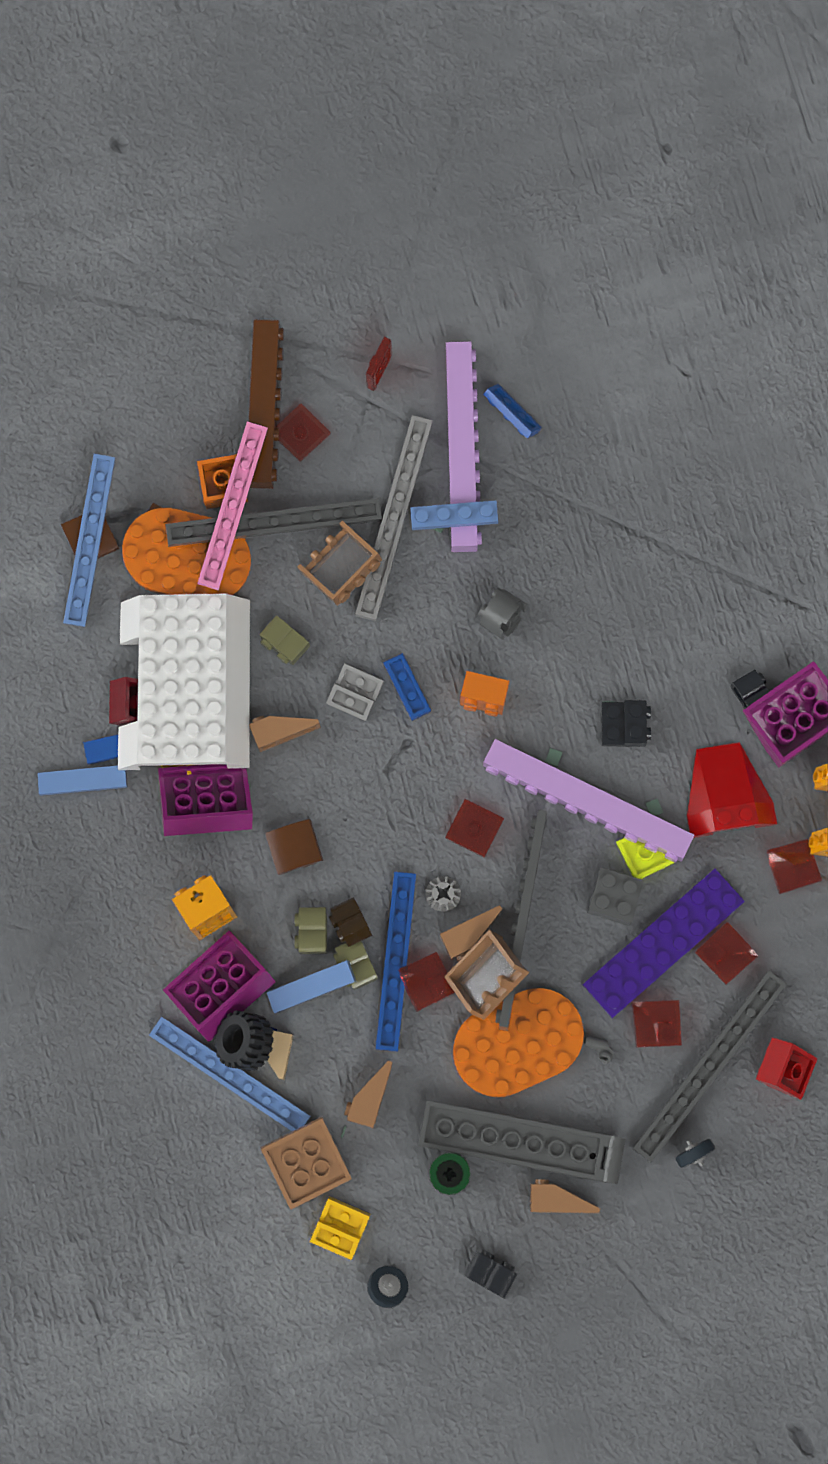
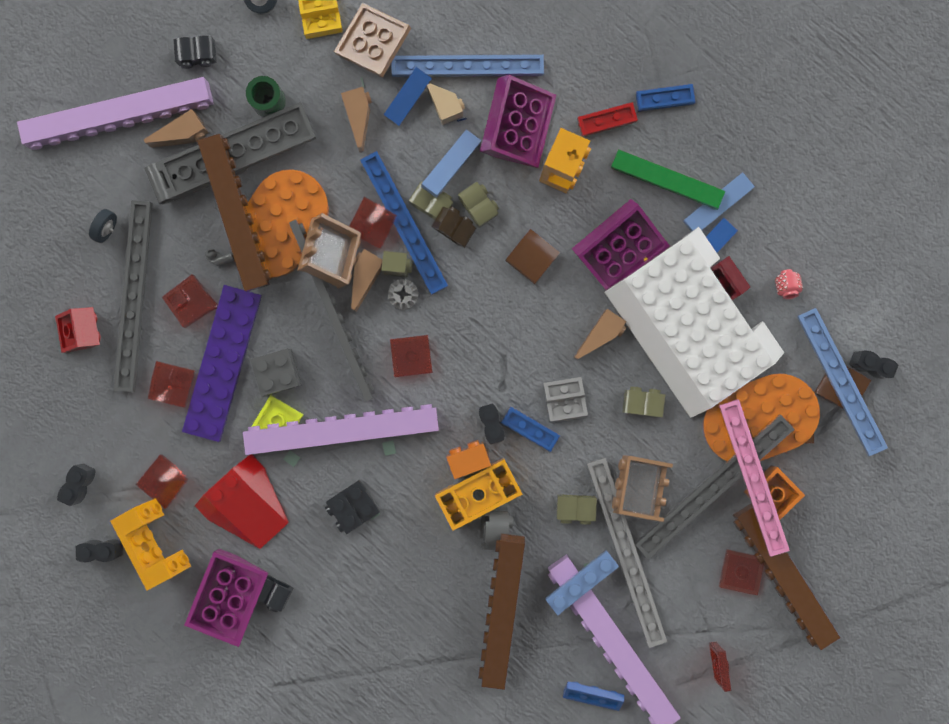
camera: 145 degrees right, 10 degrees up
(48, 537) = (873, 364): none -> black brick
(60, 916) = (665, 97): none -> blue tile
(72, 660) = (788, 284): none -> coral head
(114, 834) = (668, 179): none -> green tile
(131, 931) = (607, 119): none -> red plate
(244, 1040) = (472, 91): black tyre -> none
(308, 1083) = (407, 96): none -> blue tile
(413, 586) = (576, 508): none -> olive brick
(430, 921) = (396, 264): none -> olive brick
(438, 718) = (493, 430): none -> black brick
(518, 661) = (458, 499): none -> light orange plate
(544, 536) = (503, 610): none -> reddish brown brick
(555, 1076) = (233, 212): none -> reddish brown brick
(612, 1264) = (115, 113): none -> lavender brick

